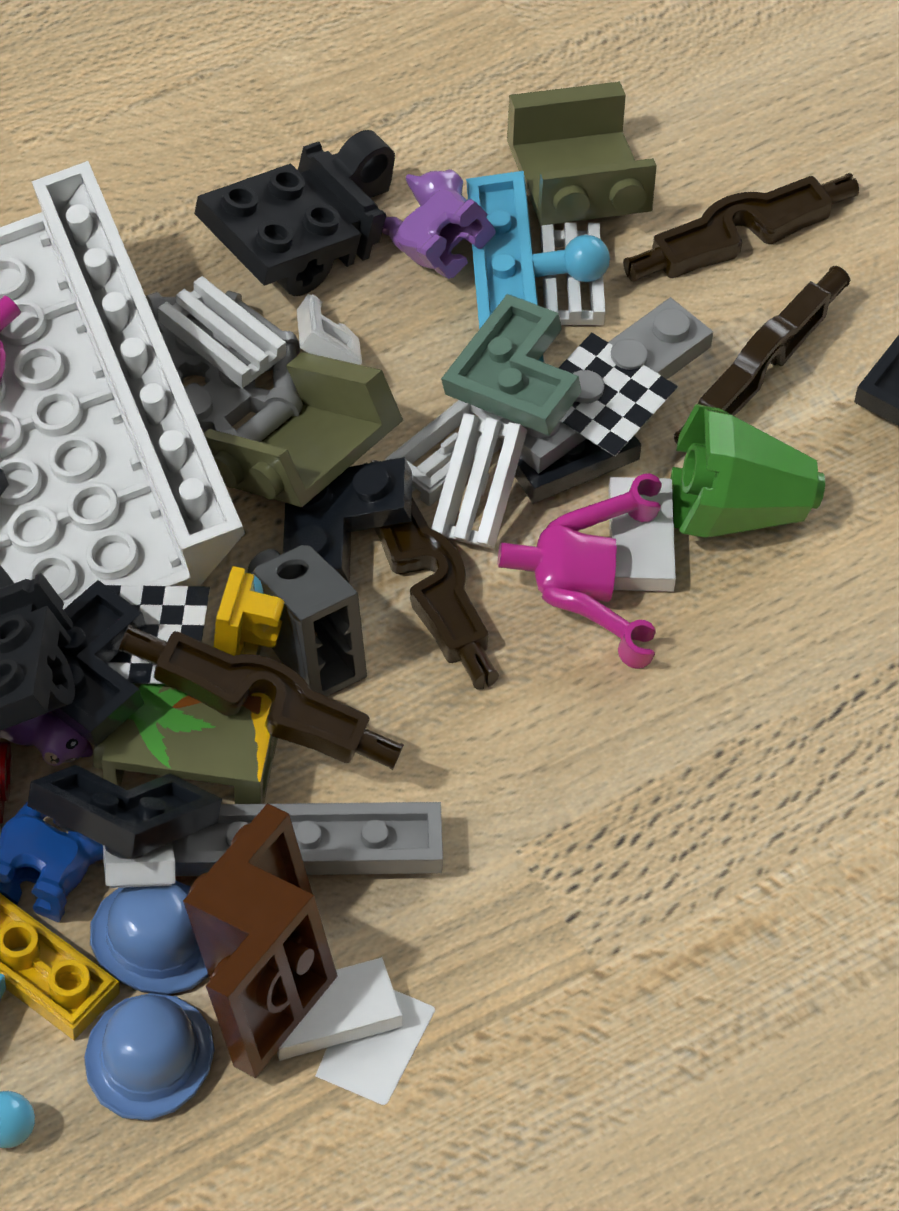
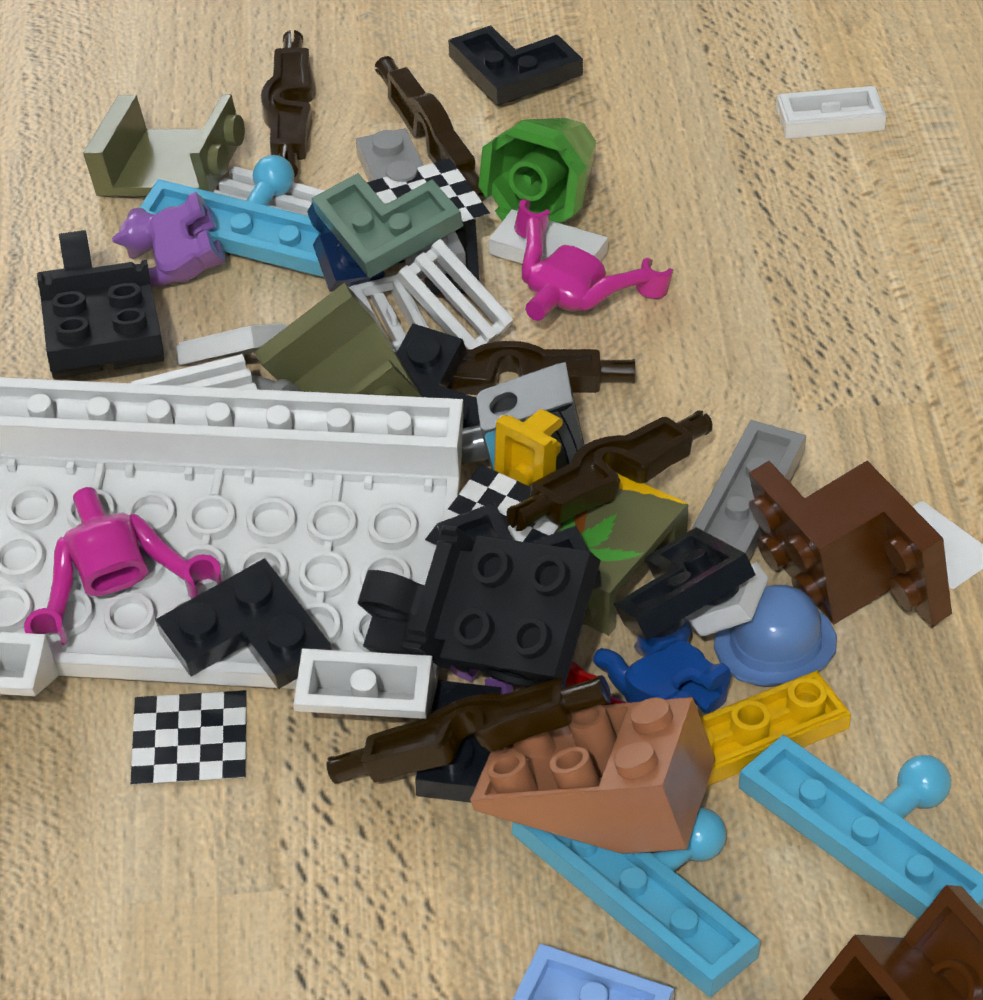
camera: 60 degrees left, 10 degrees down
(148, 1056) = (894, 675): medium blue hat -> none

